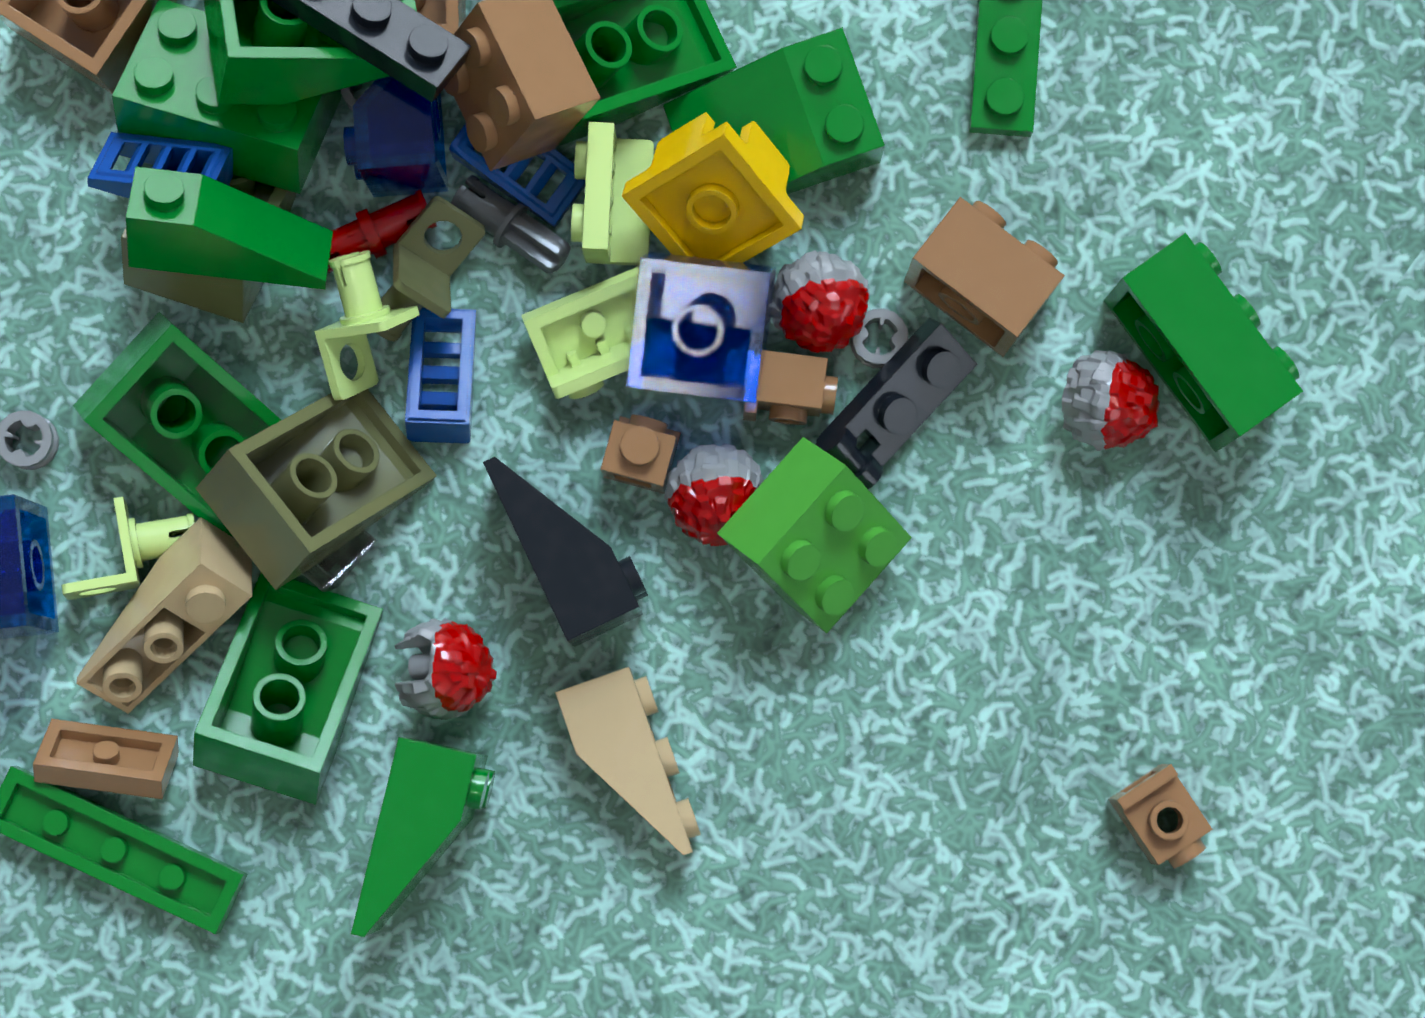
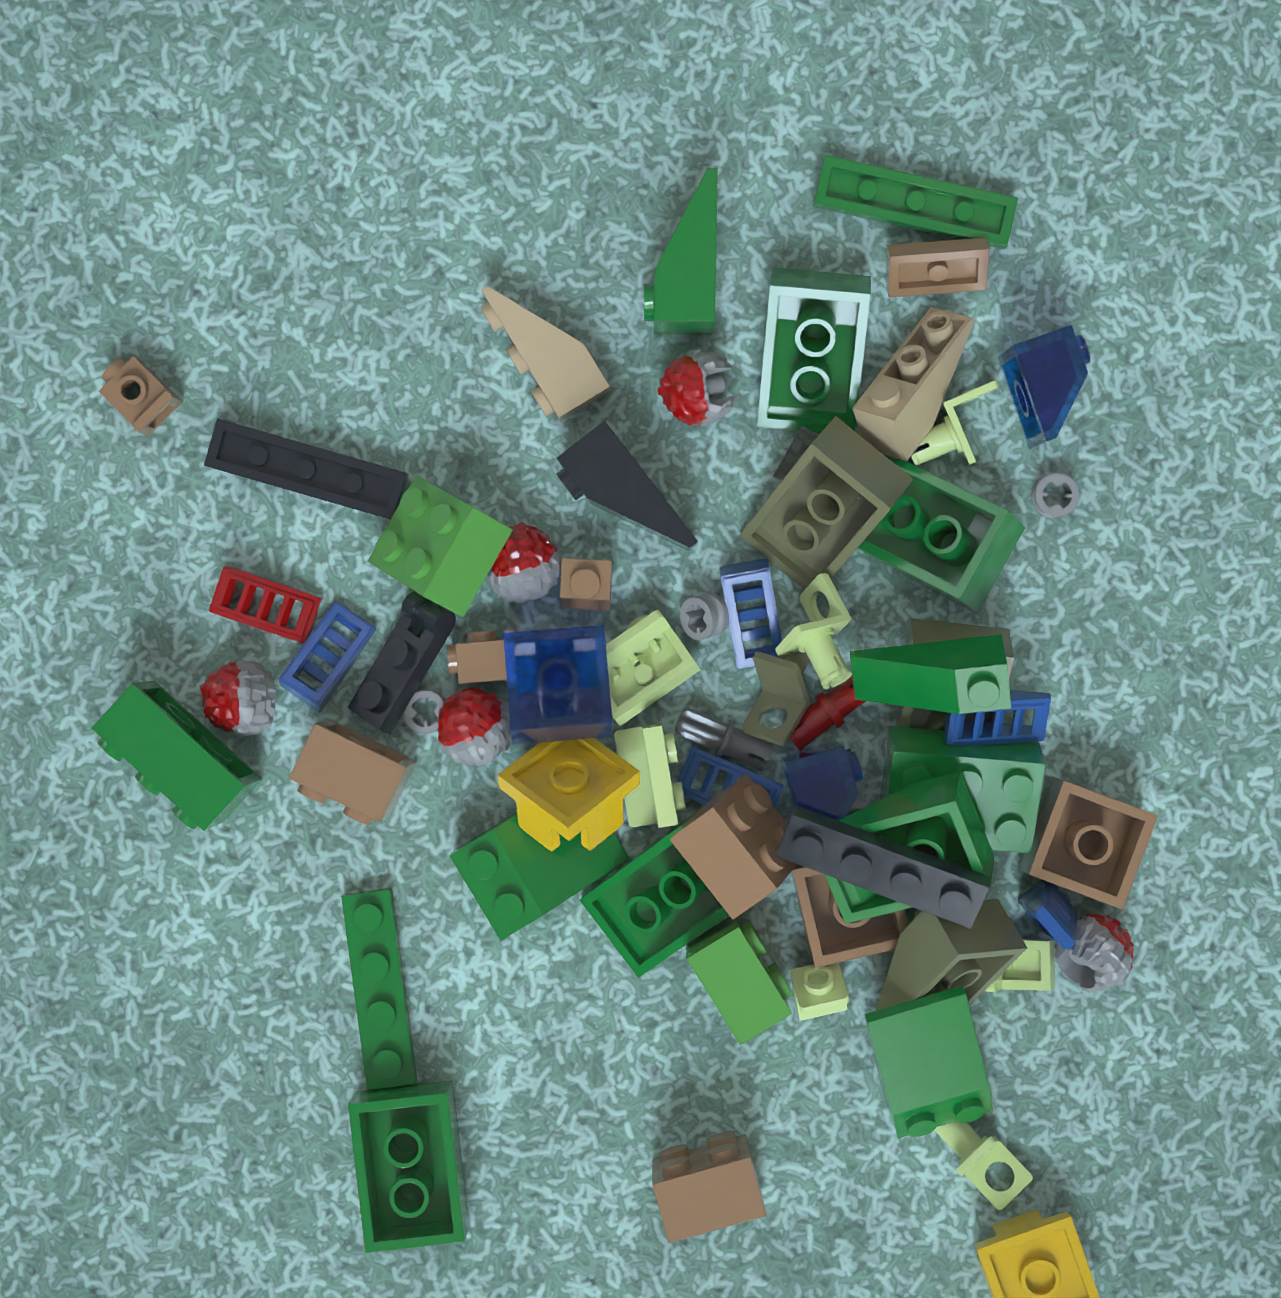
camera: 165 degrees right, 5 degrees up
(490, 370) = (704, 622): none -> light grey bush
(967, 675) = (305, 469): none -> black plate
(1027, 396) = (330, 682): none -> blue slope
(1087, 507) = (224, 592): none -> red slope

